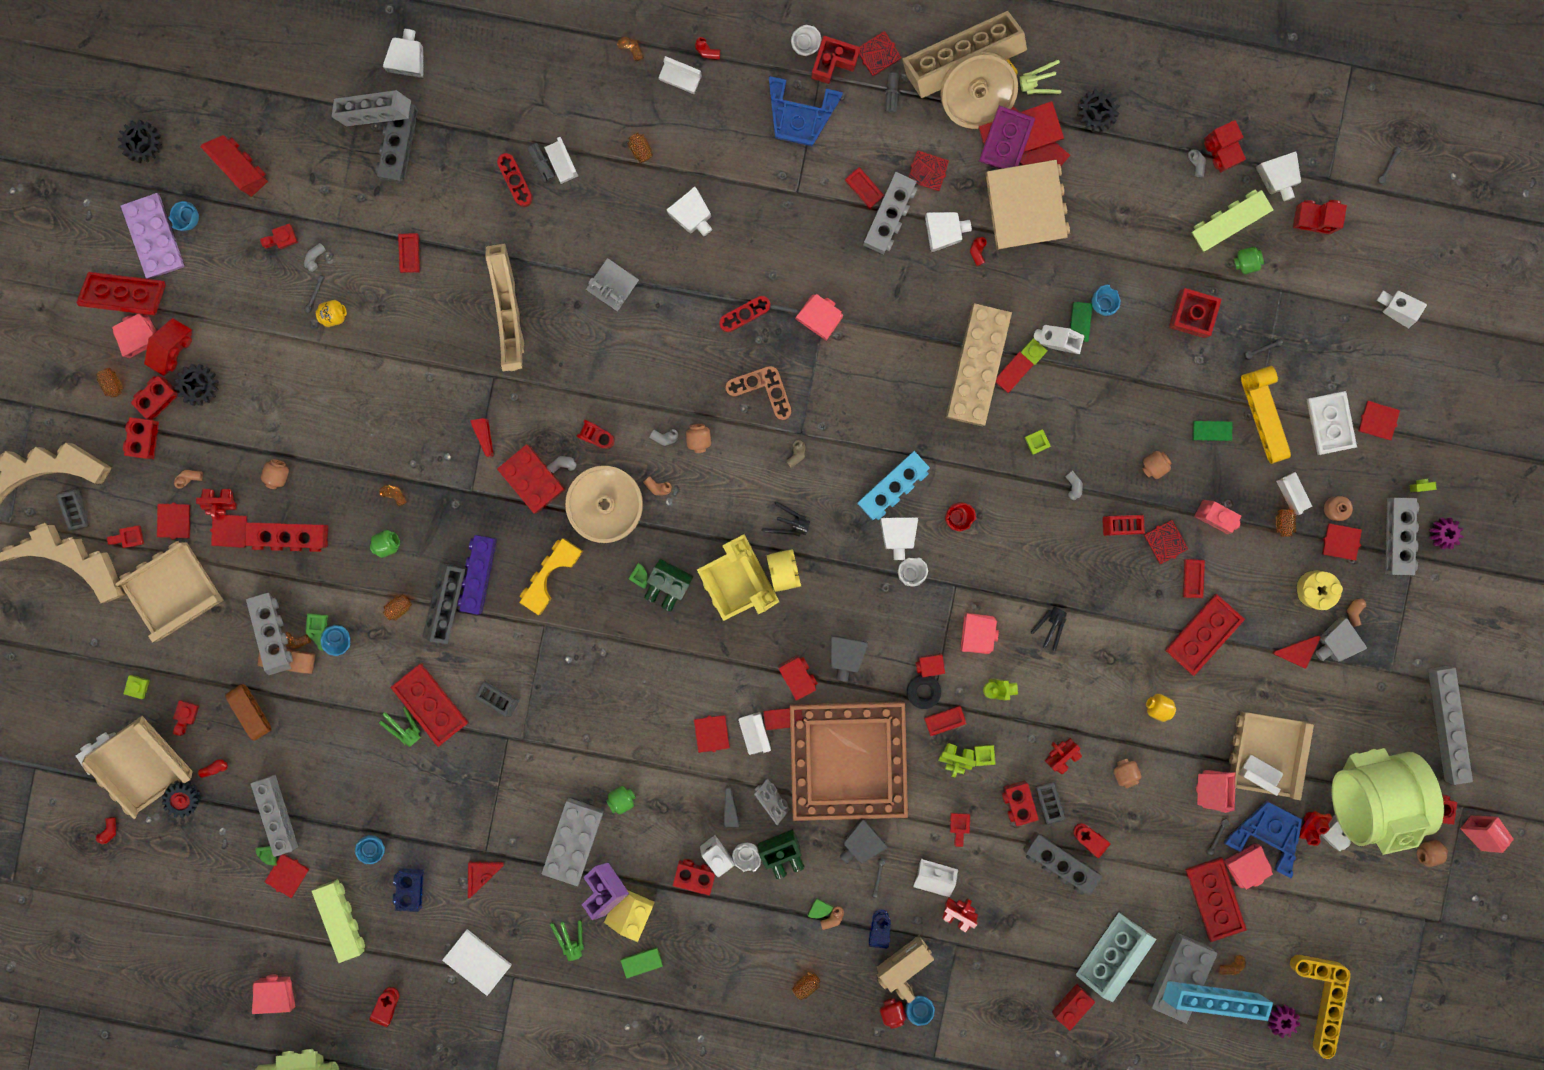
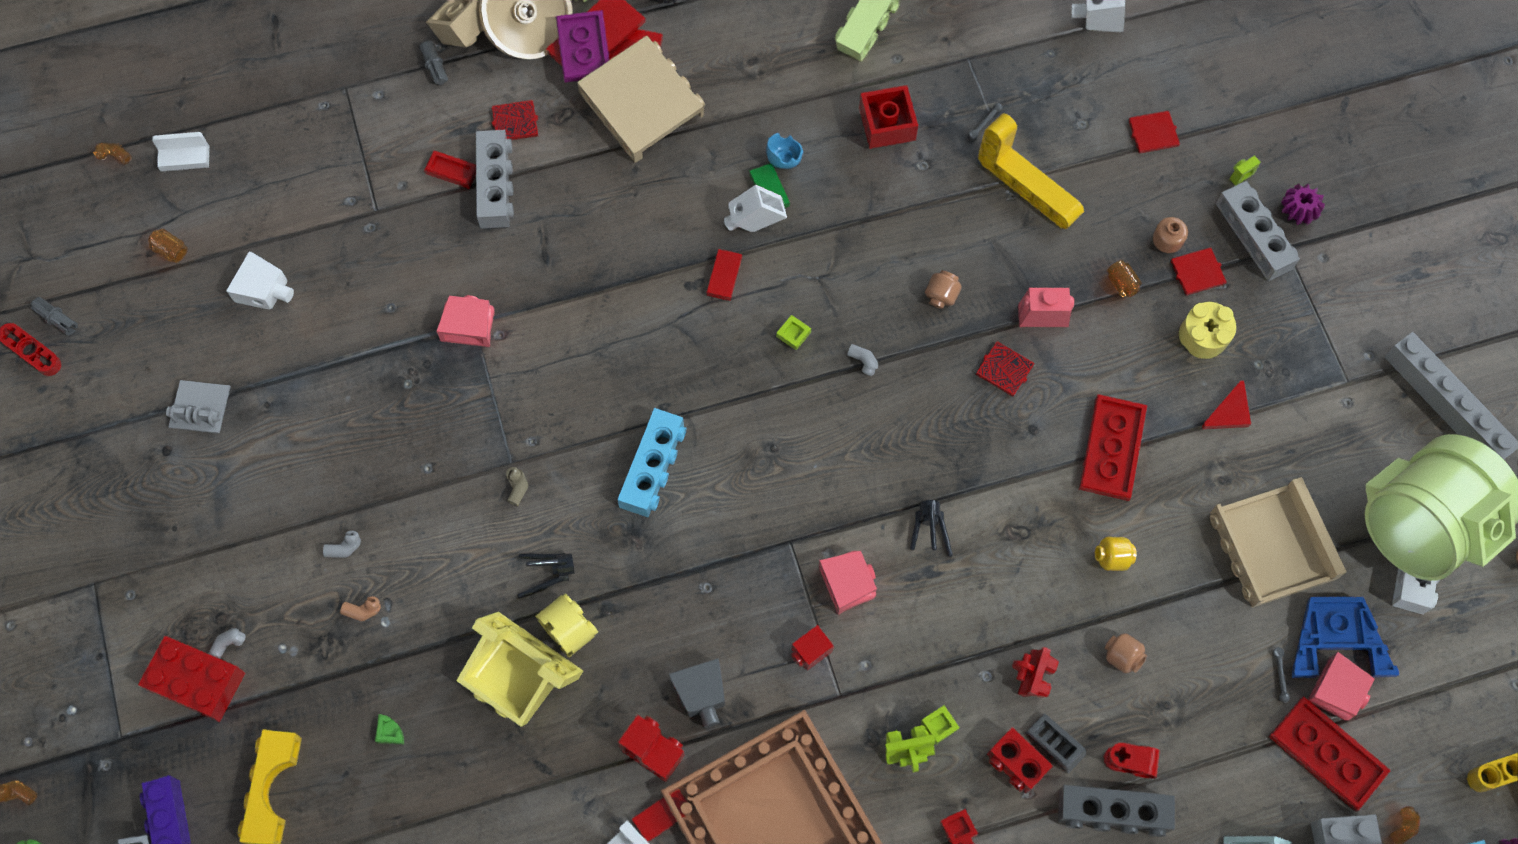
camera: 30 degrees left, 20 degrees down
(482, 431) = (103, 652): red slope -> none
(506, 307) = (62, 470): tan arch -> none
(561, 161) = (78, 302): white panel -> none
(592, 434) = (249, 586): red piece -> none
(604, 504) = (299, 661): tan dish -> none
(670, 580) = (428, 711): dark green brick -> none
(698, 438) = (385, 525): nougat head -> none
(705, 51) = (201, 118): red arm -> none
(729, 316) = (360, 373): red beam -> none
(762, 382) = (435, 426): nougat beam -> none
(798, 121) = (339, 137): blue wing -> none
(806, 40) = (310, 54): white hair -> none
(832, 54) = (349, 52): red brick -> none
(879, 53) = (399, 36): red piece -> none
(899, 534) = (687, 513): white torso -> none
(913, 571) = (728, 547): white hair -> none
(924, 703) = (828, 671): black tyre -> none
(945, 229) = (564, 166): white torso -> none
(945, 720) = (868, 709): red tile -> none
(960, 516) = (750, 455): red hair -> none
(976, 250) = (611, 171): red arm -> none
(978, 365) = (679, 284): tan brick -> none
(1000, 689) = (911, 629): lime hips -> none
(1034, 351) = (735, 241): lime plate -> none
(1111, 525) = (932, 381): red slope -> none
(1193, 578) = (1061, 392): red tile -> none
(1212, 431) = (982, 227): green tile -> none
(1216, 790) = (1242, 613): coral torso -> none
(1249, 260) = (914, 42): bright green head -> none
(1261, 774) = (1282, 569): white panel -> none
(1294, 493) = (1112, 245): white panel -> none
(1315, 826) = (1383, 595): red hips -> none
(1331, 423) = (1105, 158): white tile -> none
(1340, 641) = (1268, 373): light grey torso -> none
(1354, 611) = (1261, 334): nougat arm -> none

